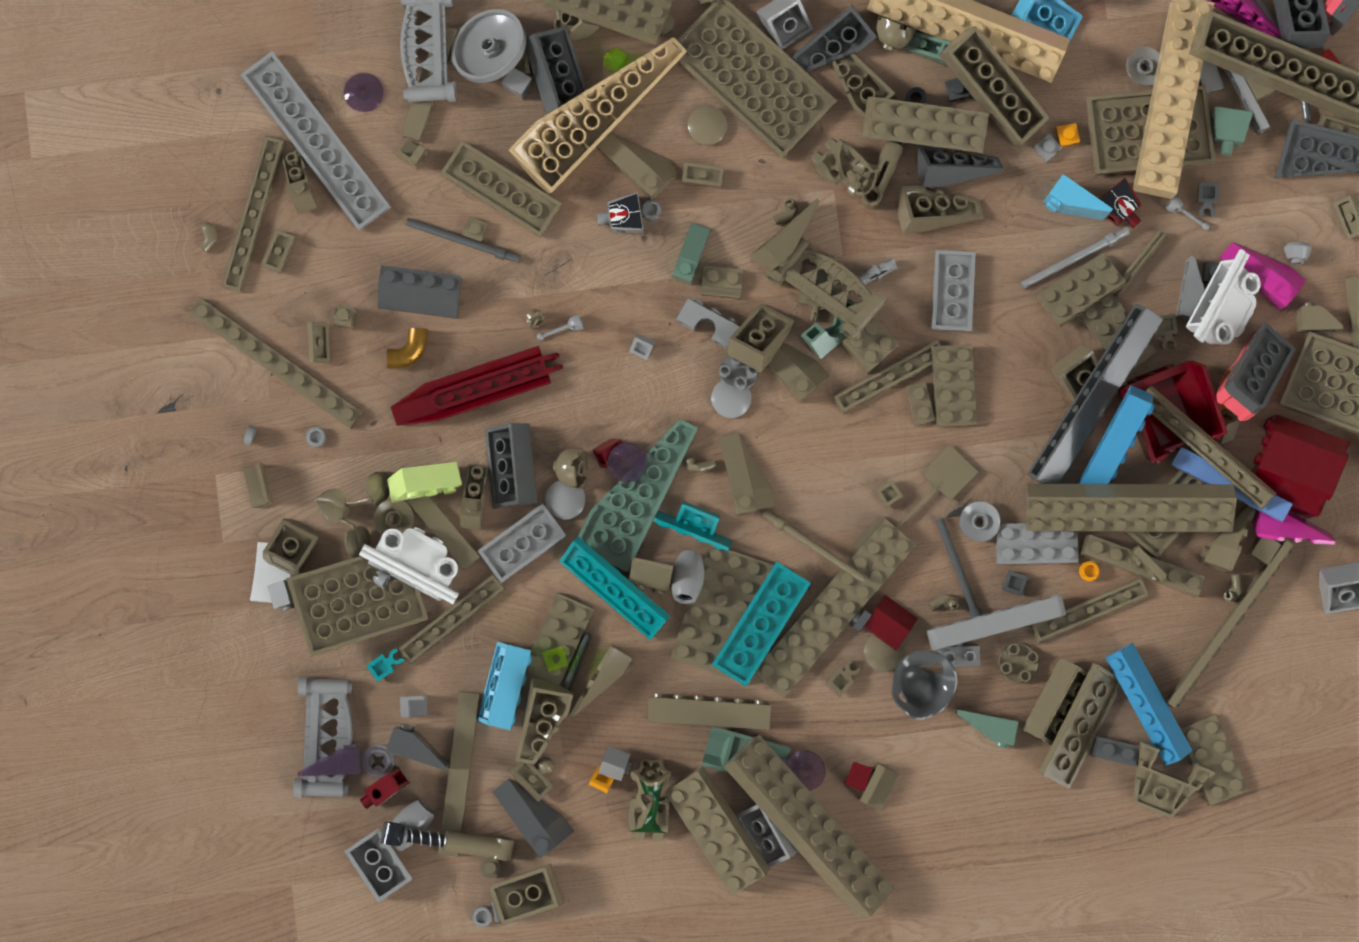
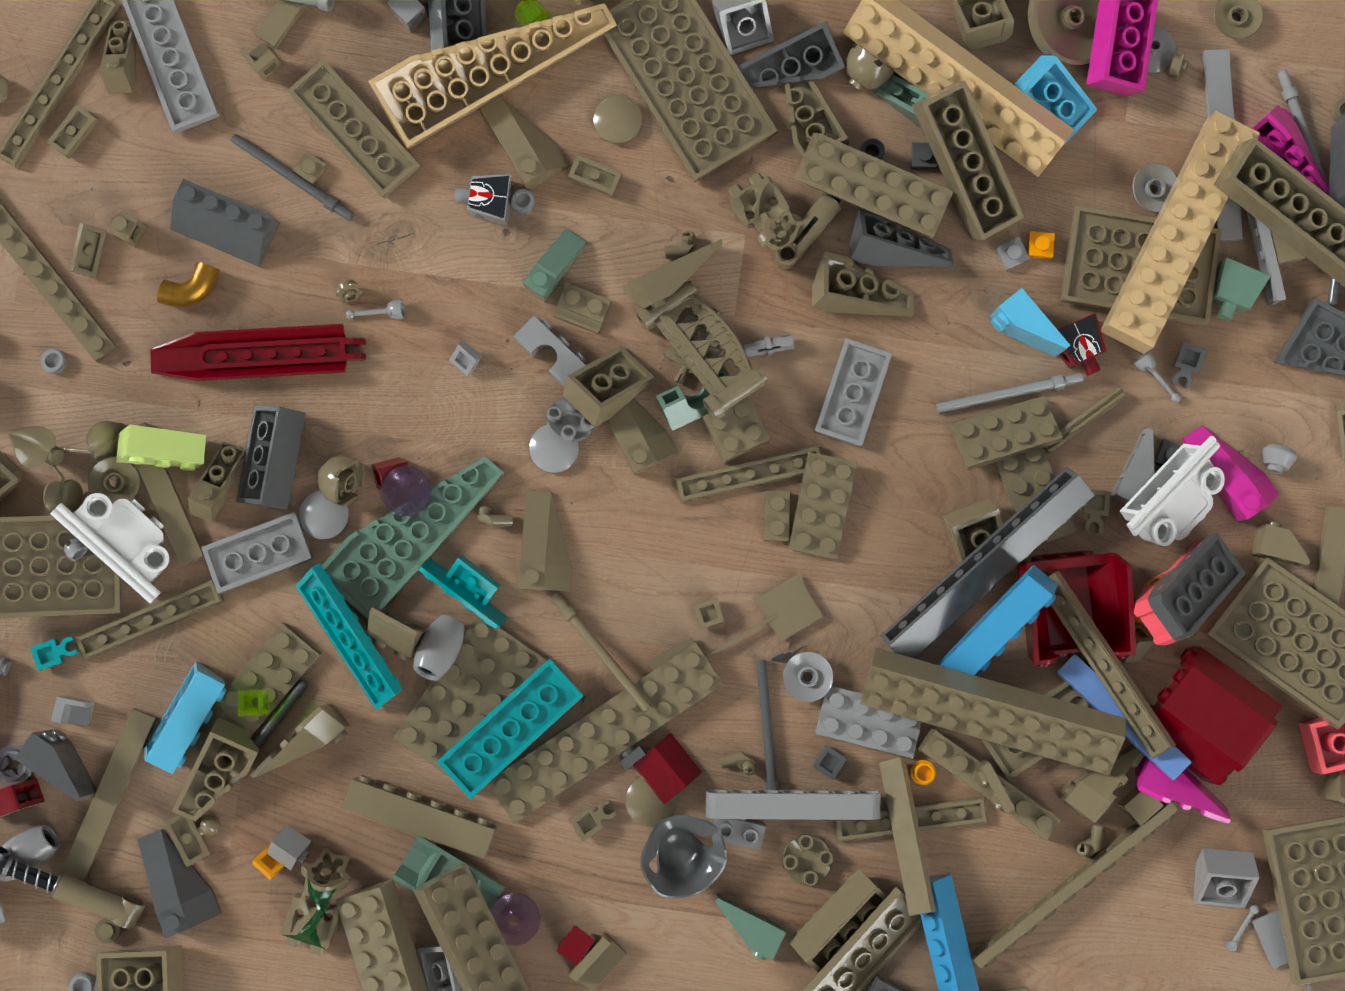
camera: 15 degrees right, 0 degrees up
(1090, 622) = (907, 836): none -> dark tan tile

